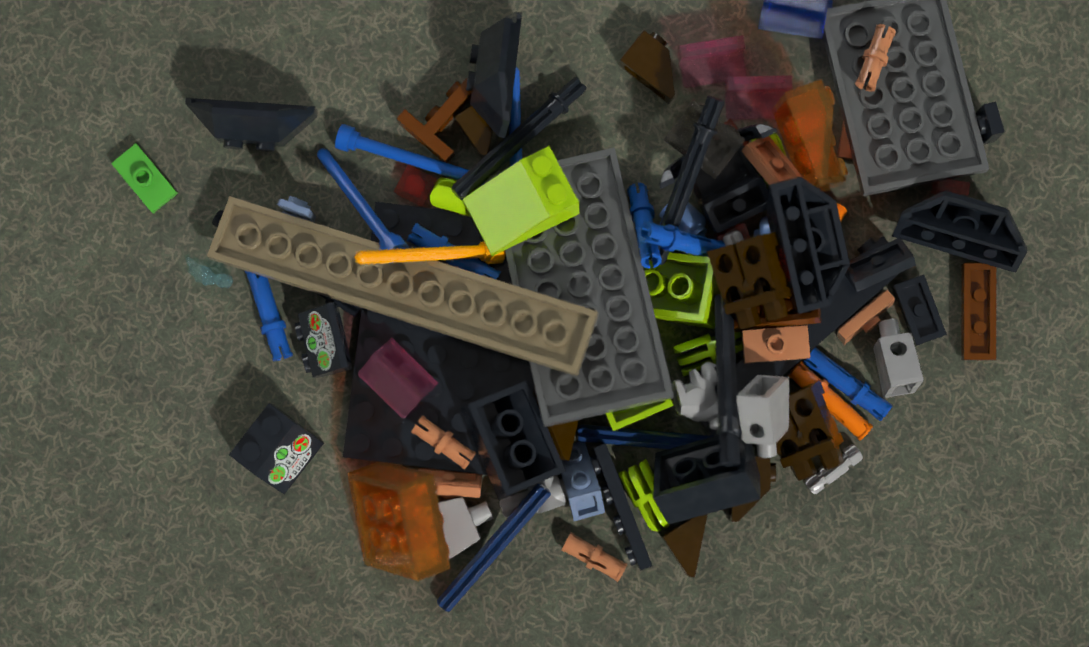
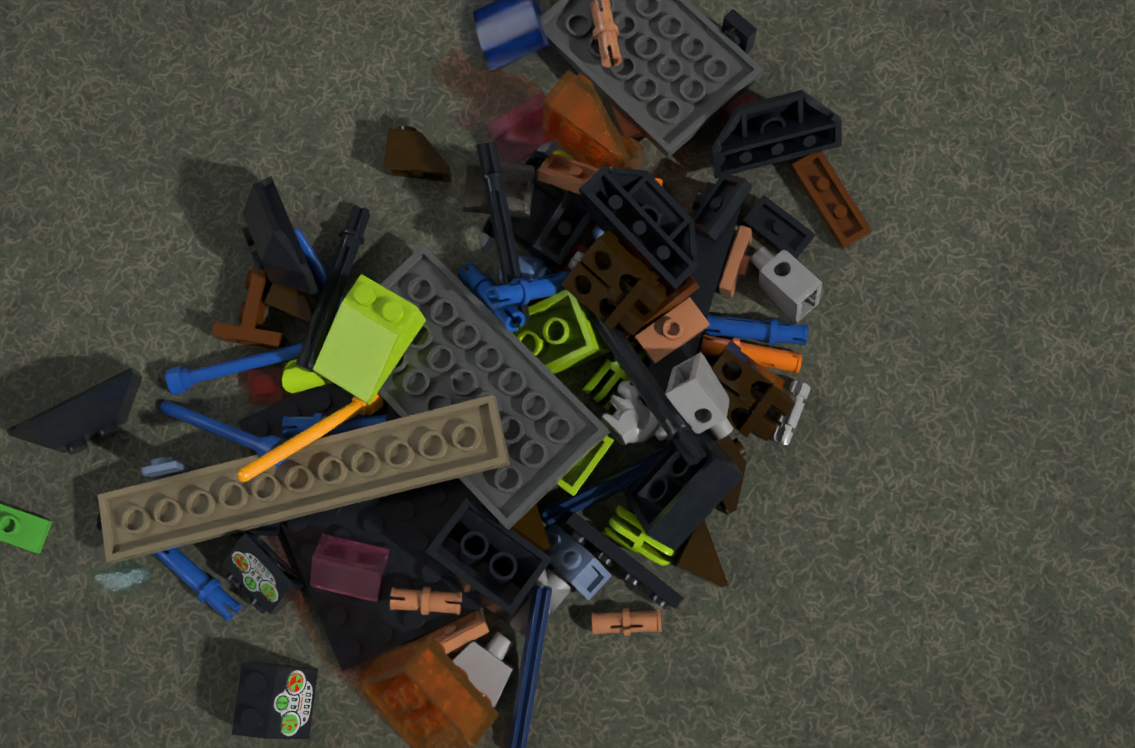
camera: 25 degrees left, 5 degrees down
(712, 61) = (464, 121): clear pink panel -> none

